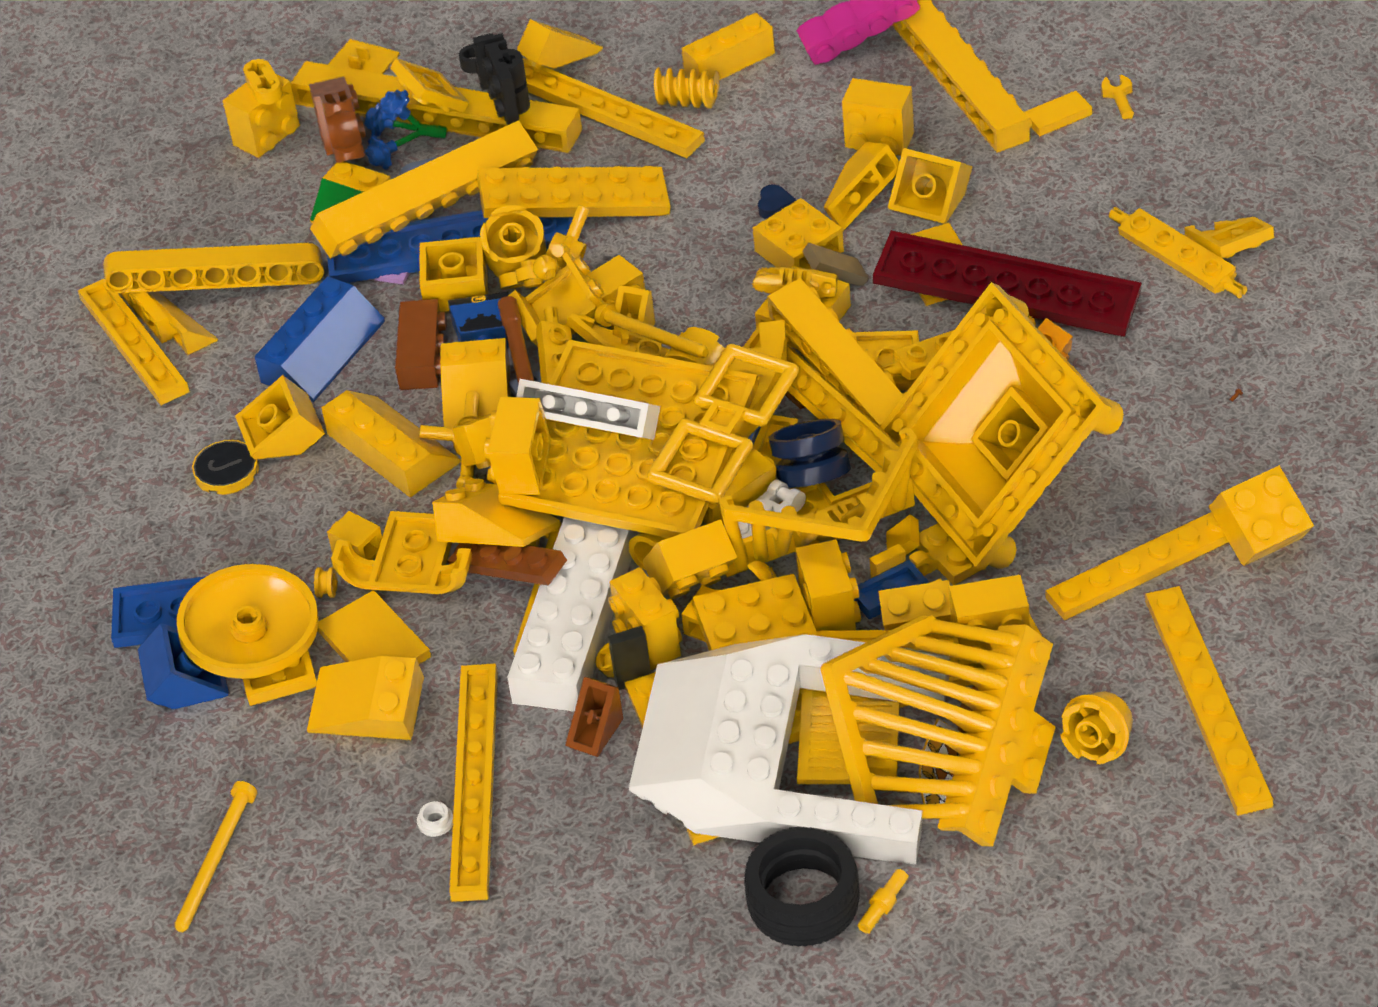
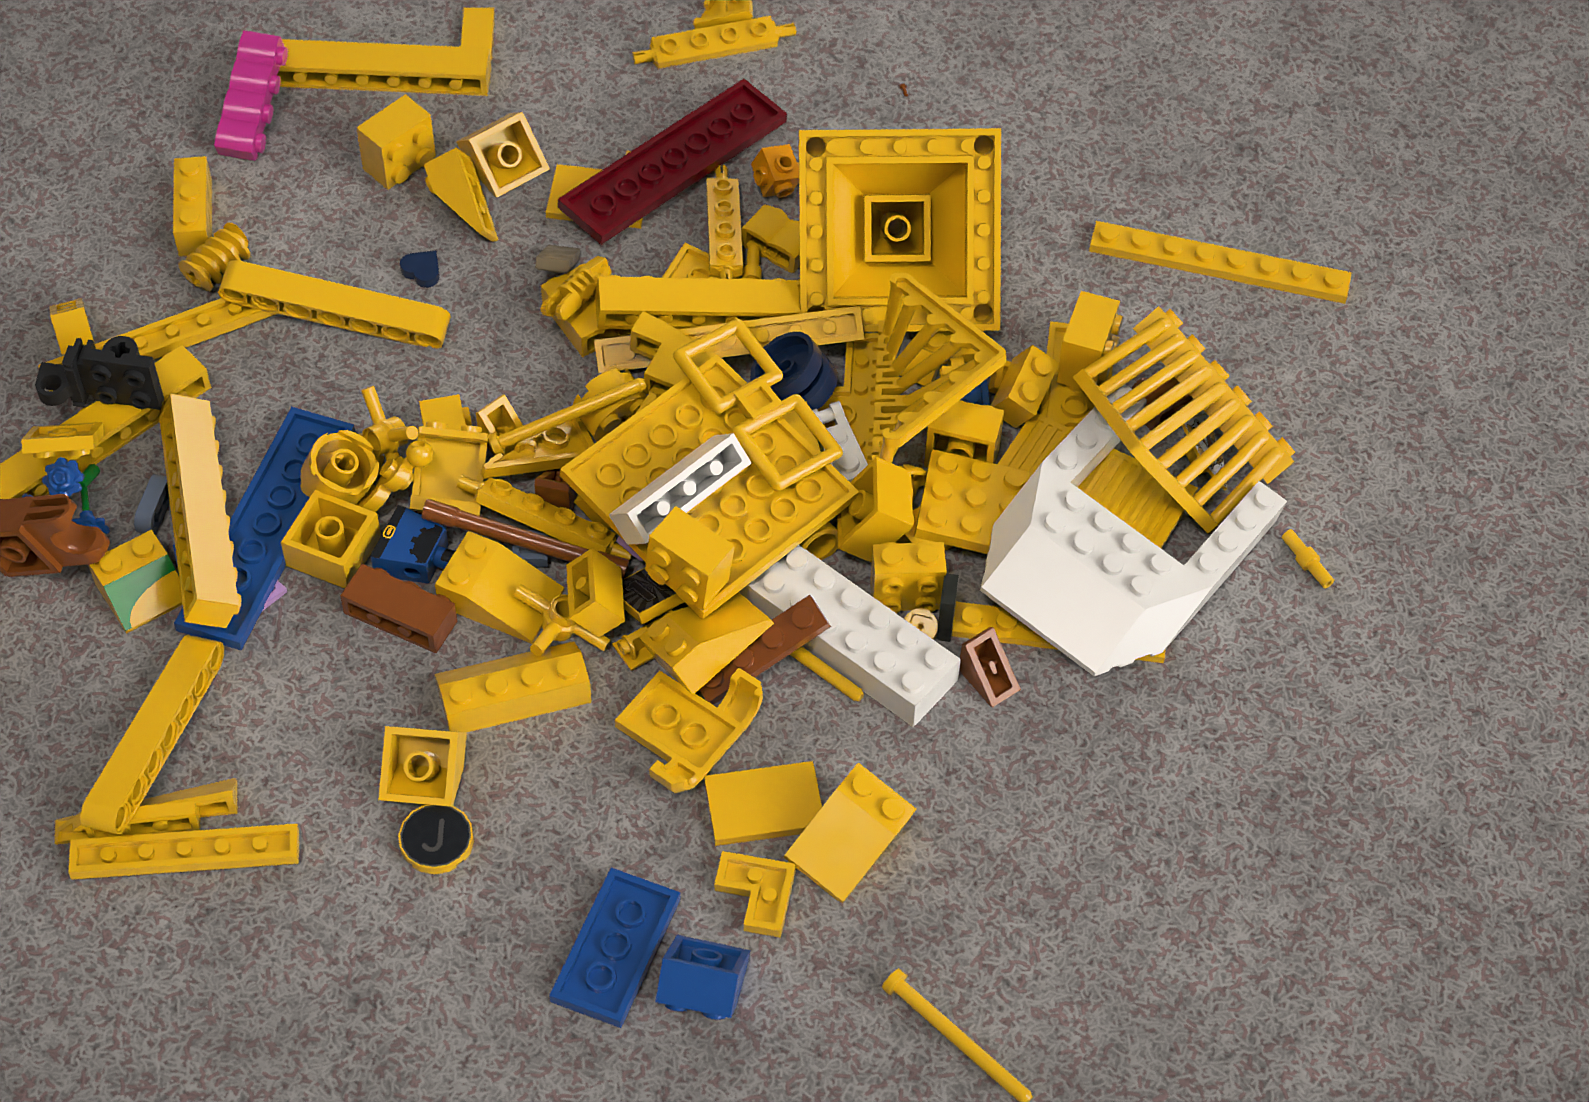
camera: 70 degrees left, 10 degrees up
(247, 621) = (698, 887): yellow dish -> none
(319, 338) = (324, 688): slope -> none
(325, 582) = (668, 810): yellow bush -> none
(362, 534) = (628, 763): yellow brick -> none
(433, 811) = (1028, 831): white plate -> none
(474, 783) = (999, 790): yellow plate -> none
(561, 189) = (292, 402): yellow plate -> none
(684, 168) = (334, 304): none -> yellow beam
(787, 233) = (499, 269): yellow brick -> none
(807, 922) = (1282, 567): black tyre -> none
(1096, 726) = (1227, 334): yellow cone -> none
(1136, 566) = (1049, 209): yellow plate -> none
(1261, 515) = (1072, 132): yellow brick -> none

